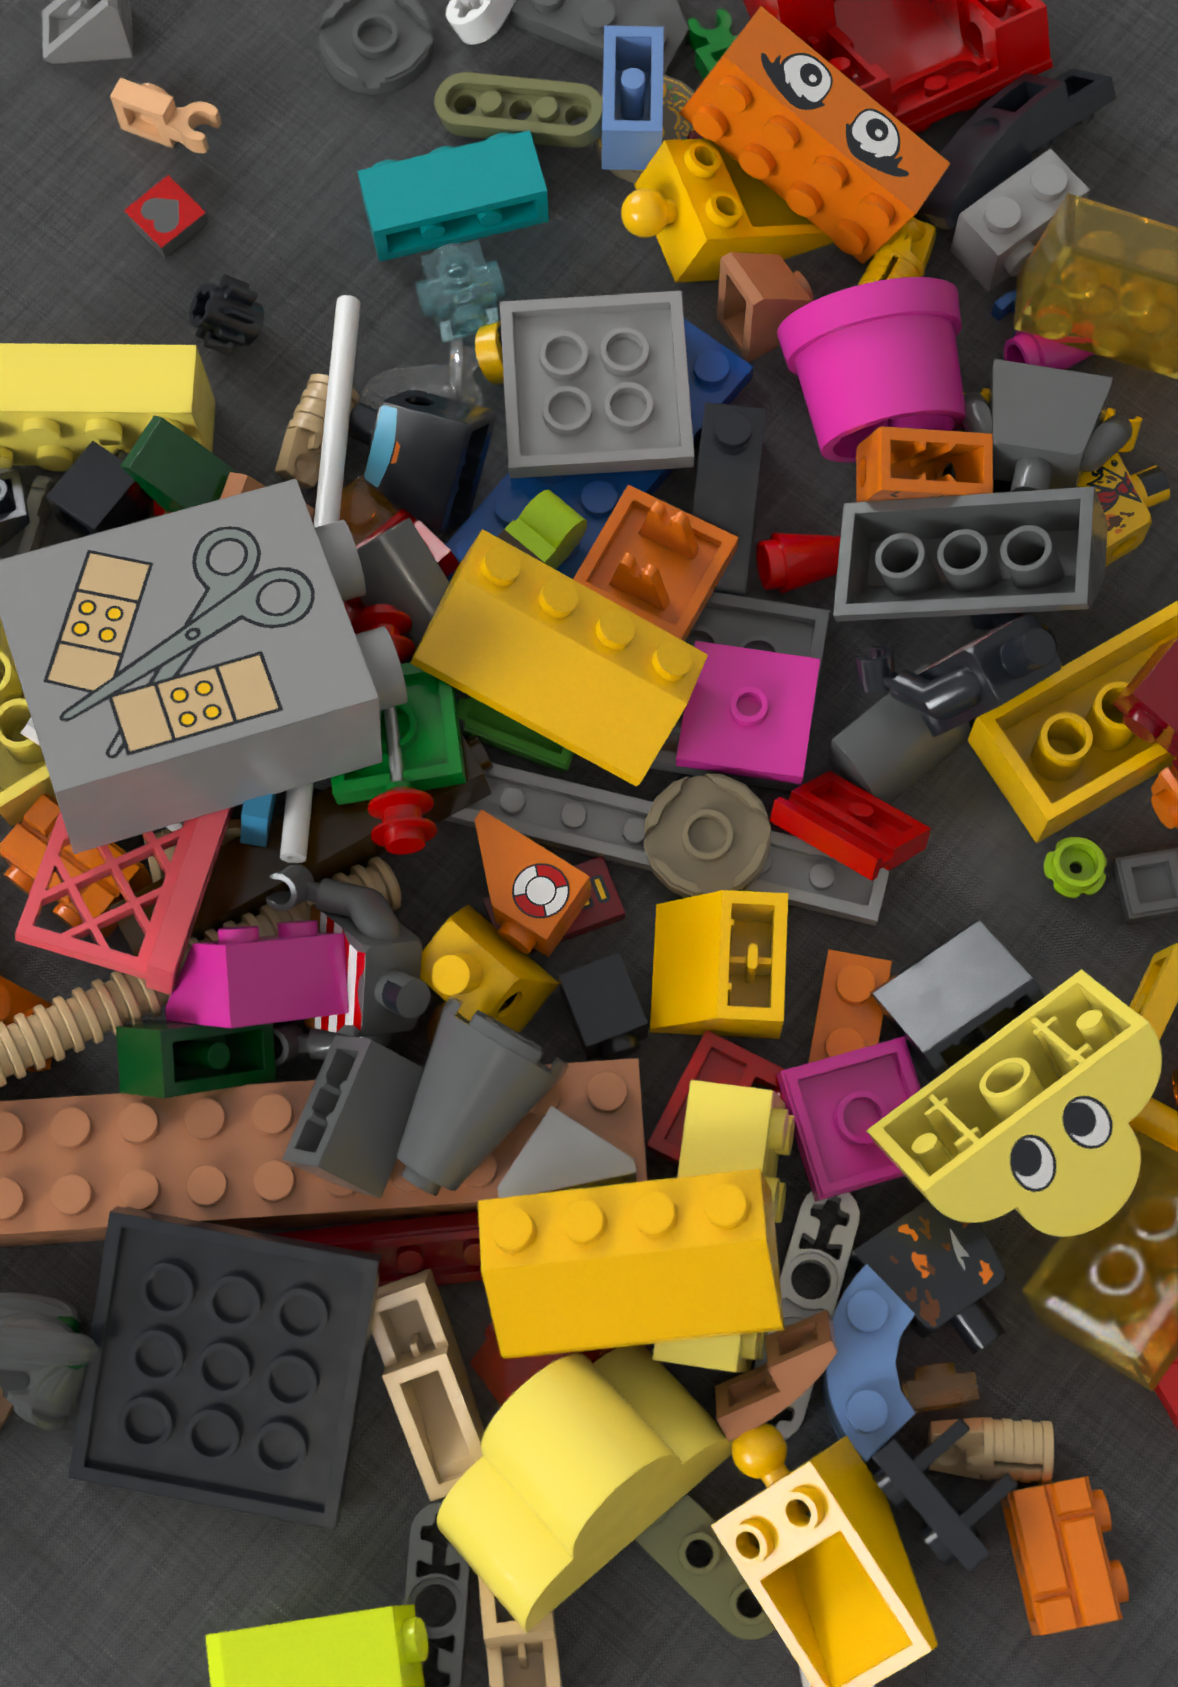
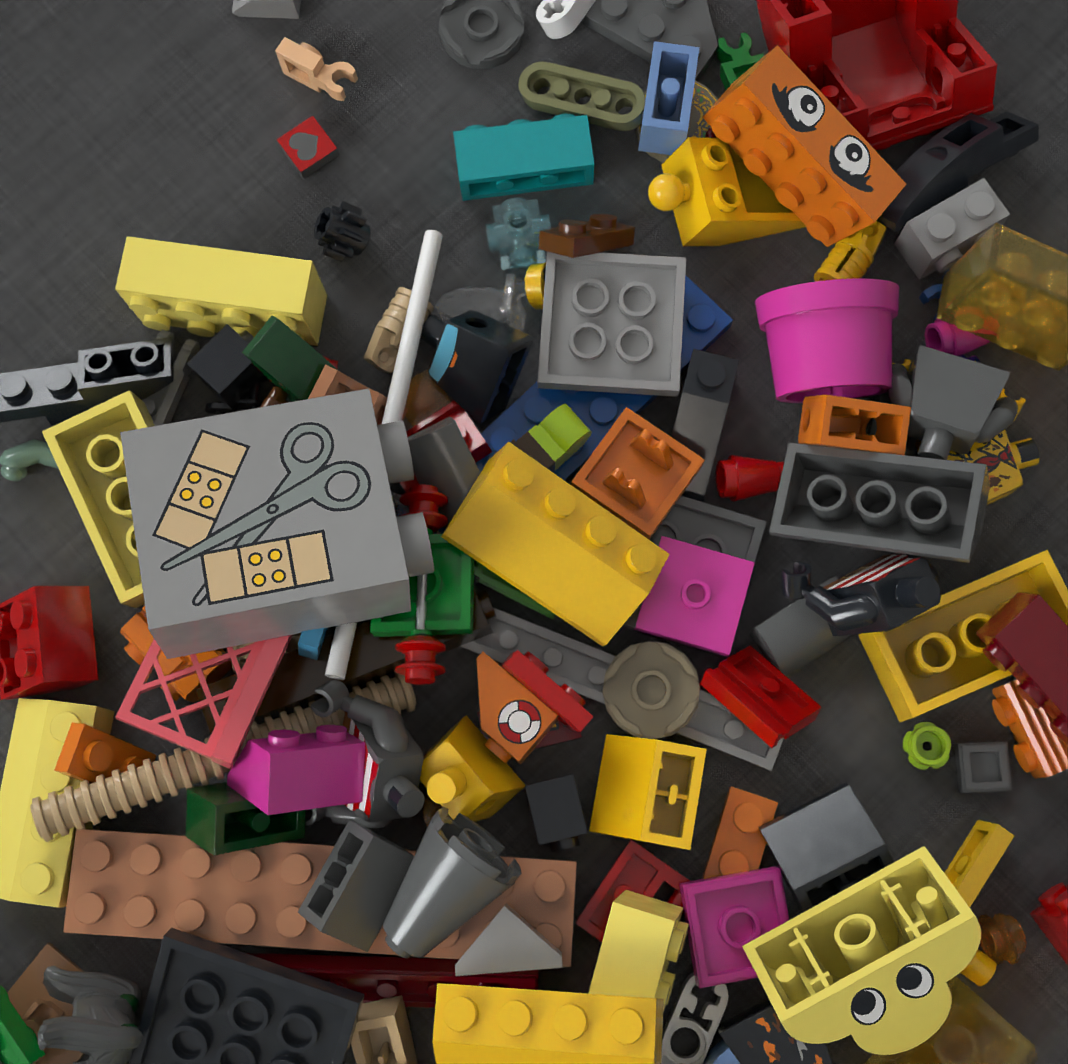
camera: 10 degrees right, 5 degrees up
(539, 283) = (584, 238): none -> reddish brown plate
(561, 837) = (561, 700): none -> red plate
(756, 298) = (746, 270): nougat slope -> none

